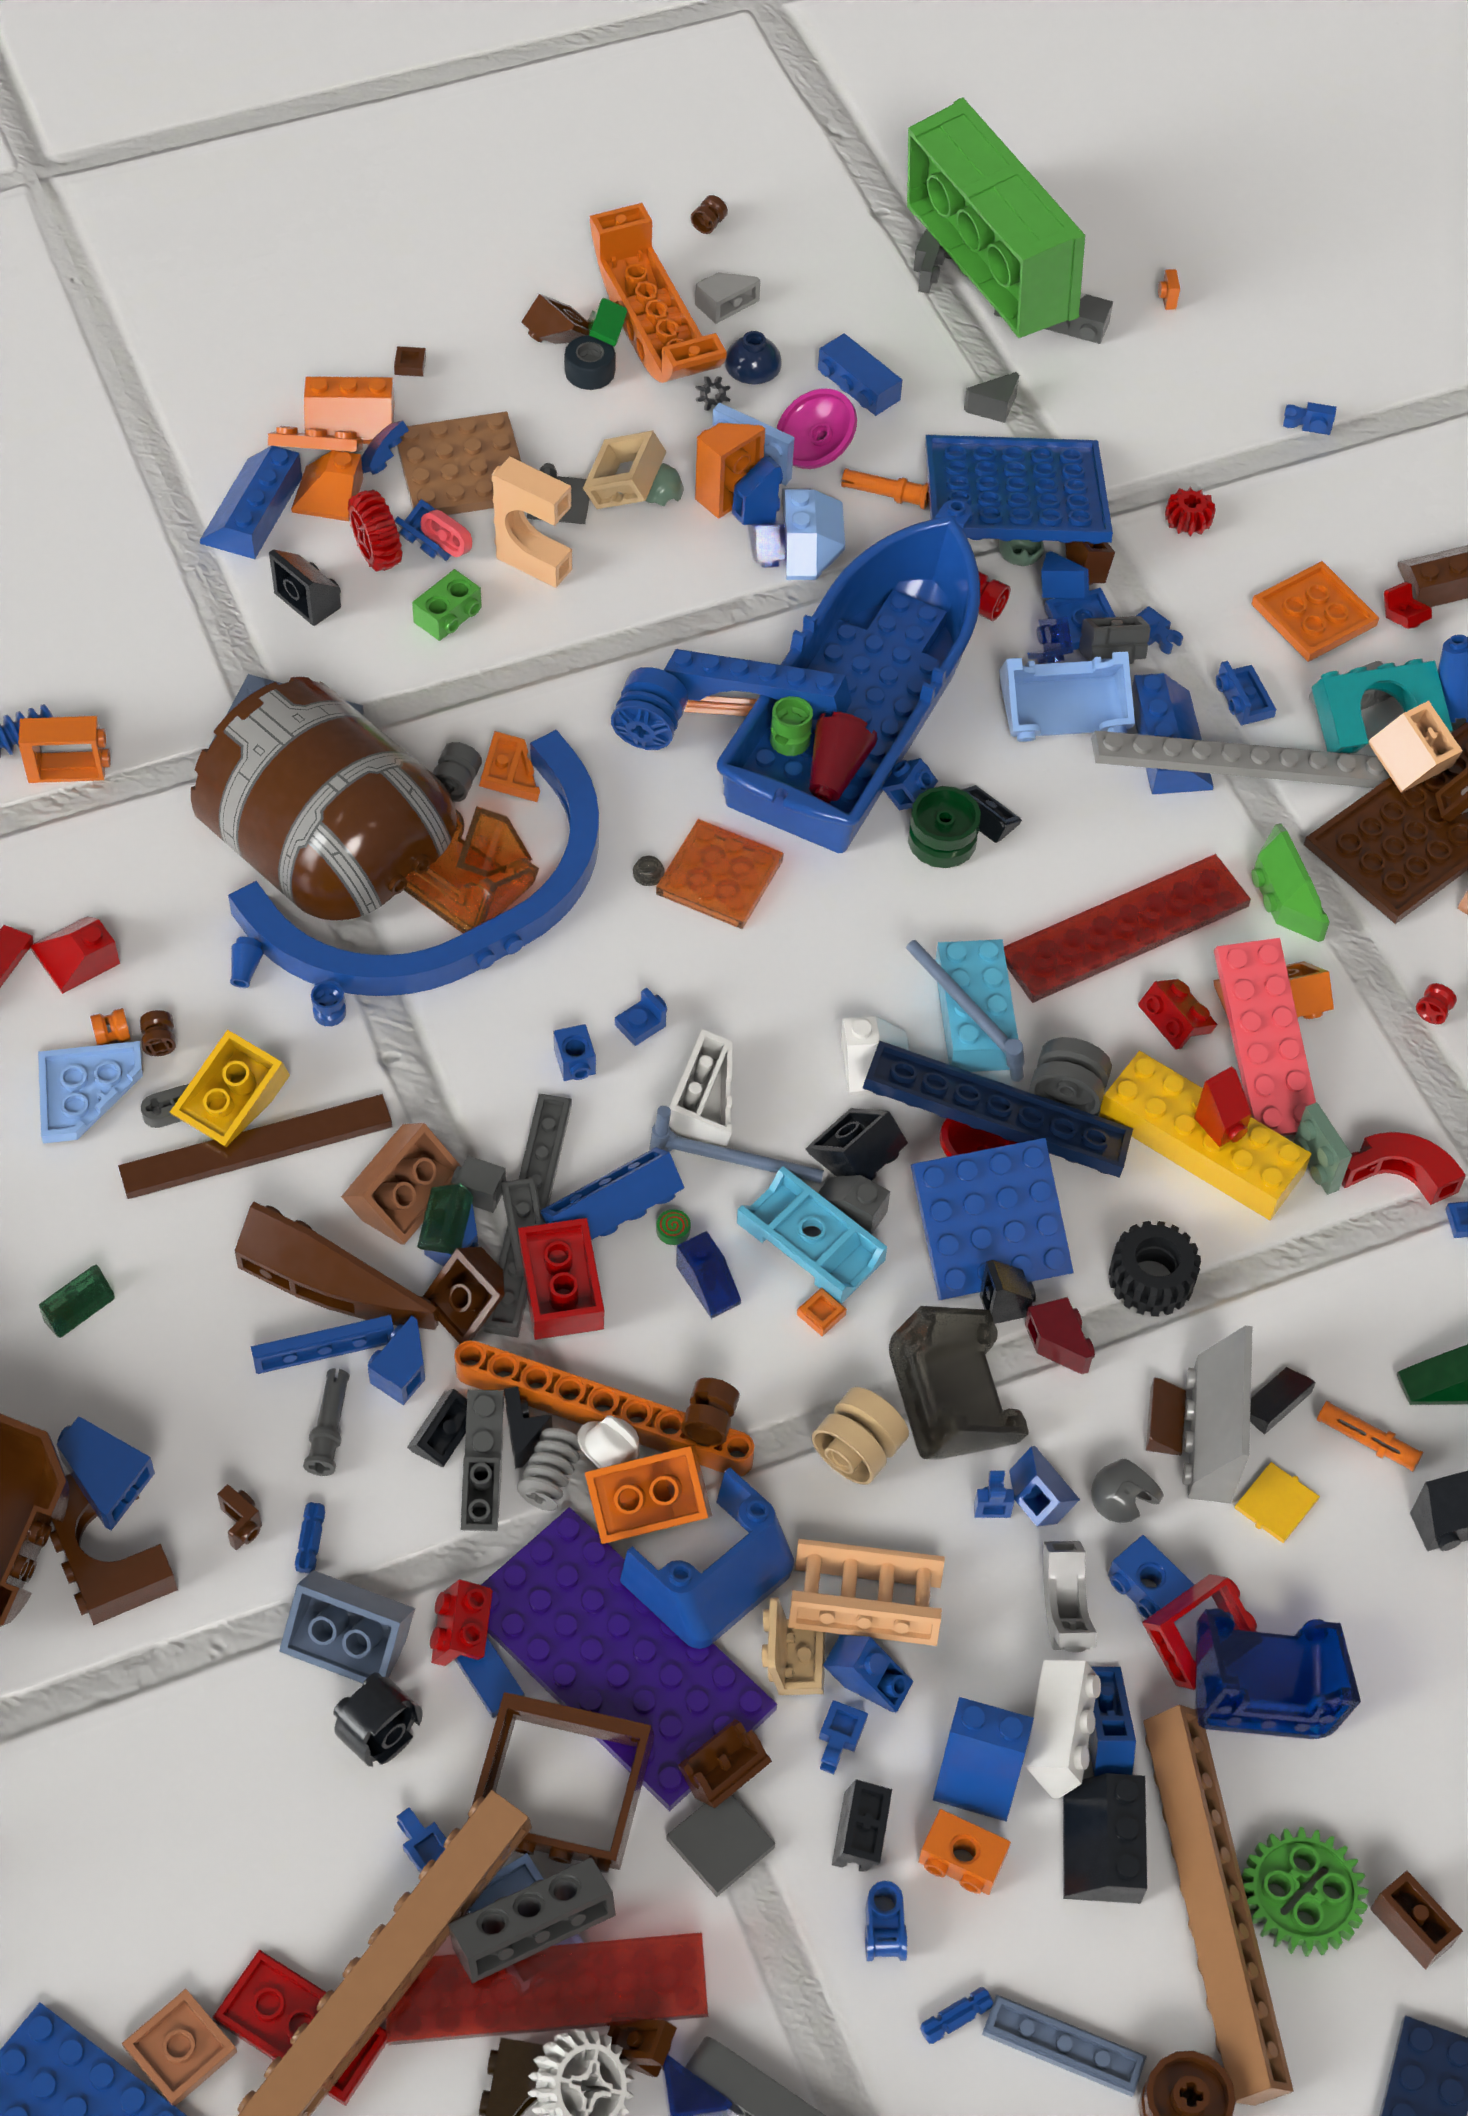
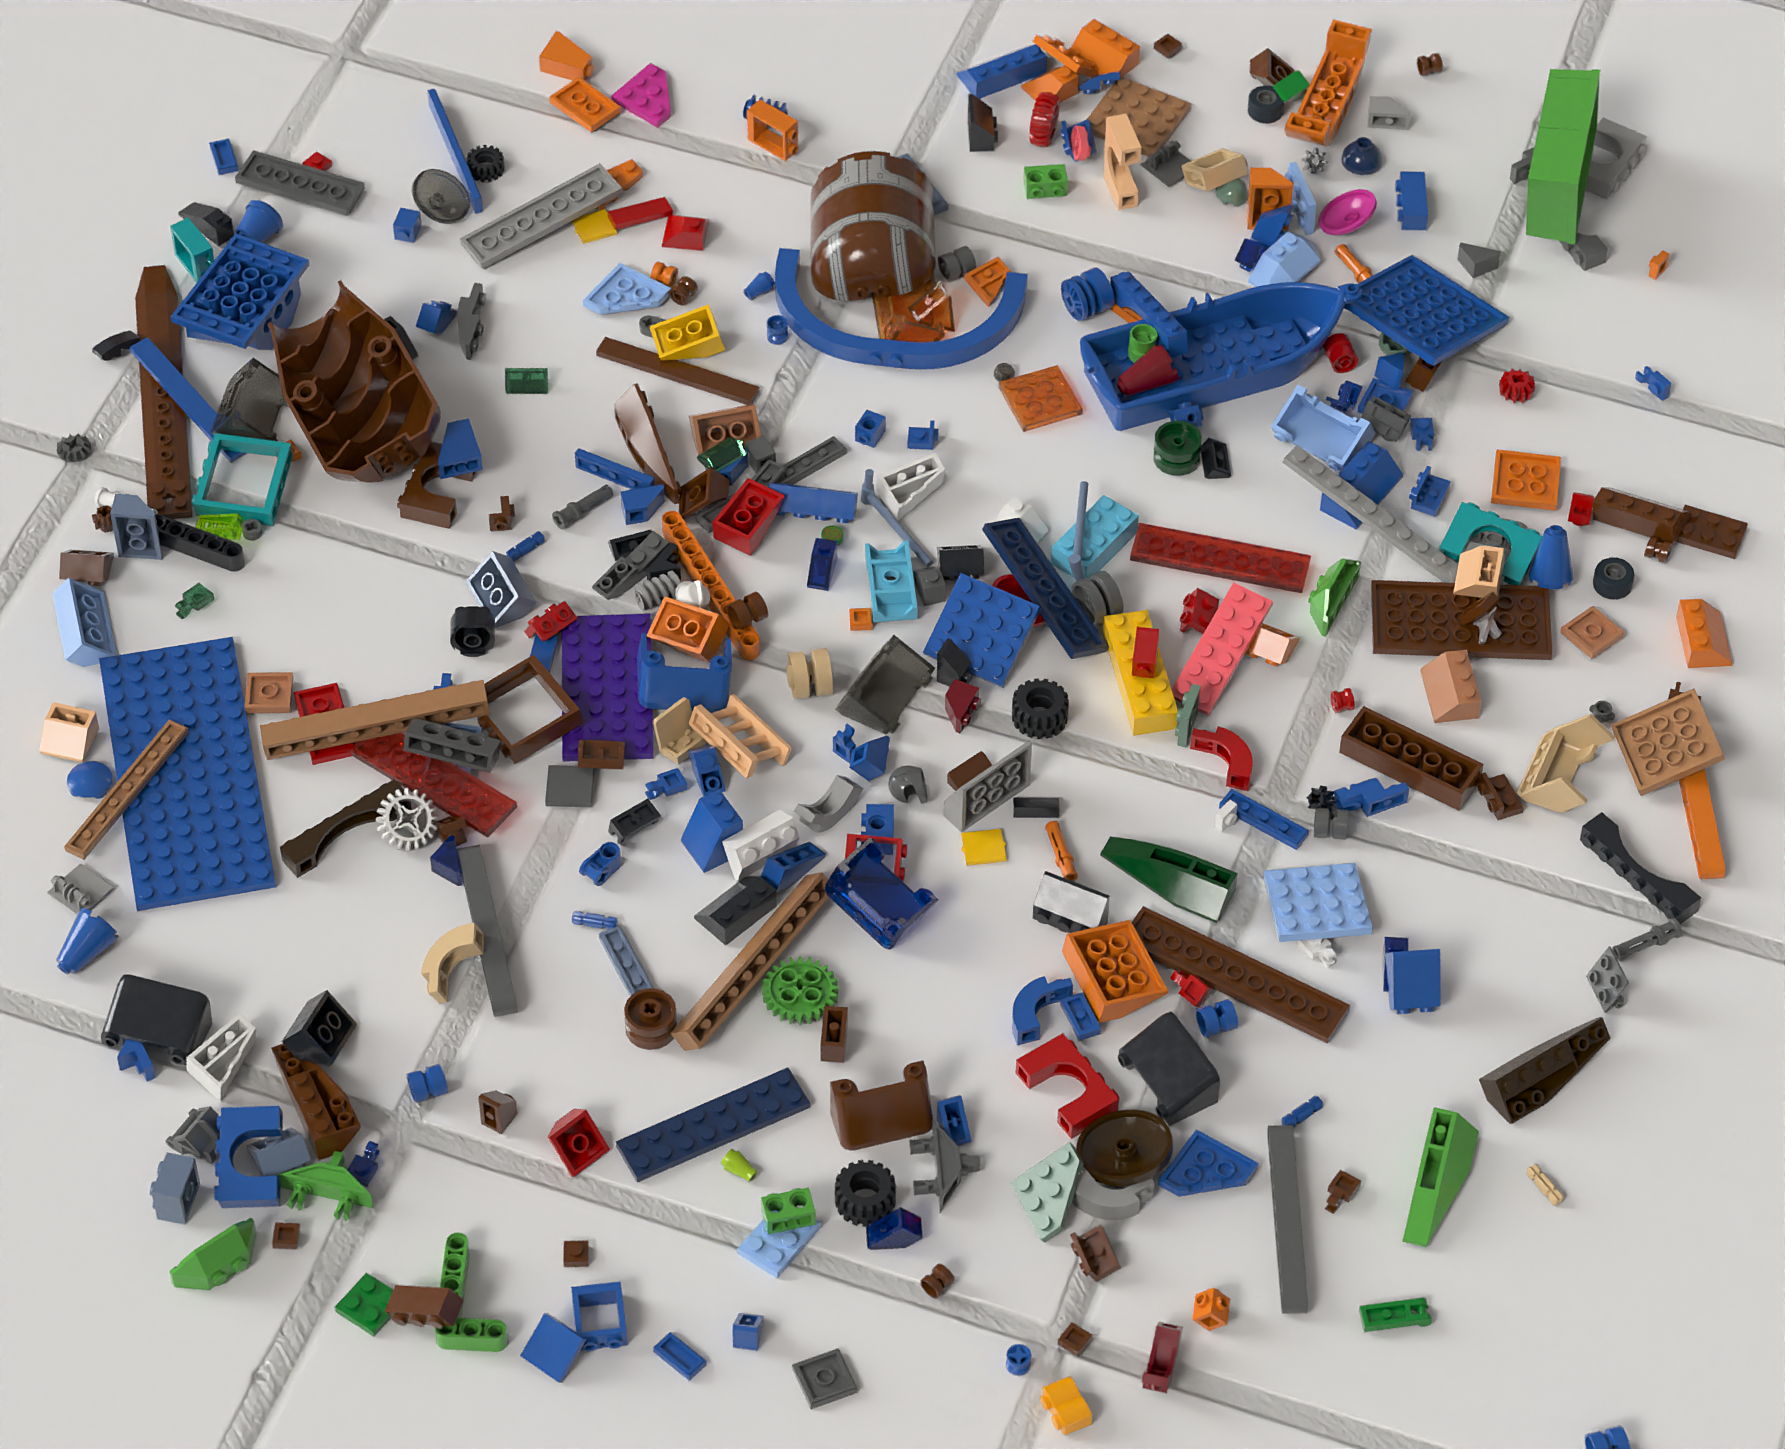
camera: 45 degrees right, 5 degrees down
(953, 1833) = (667, 865): orange brick -> none

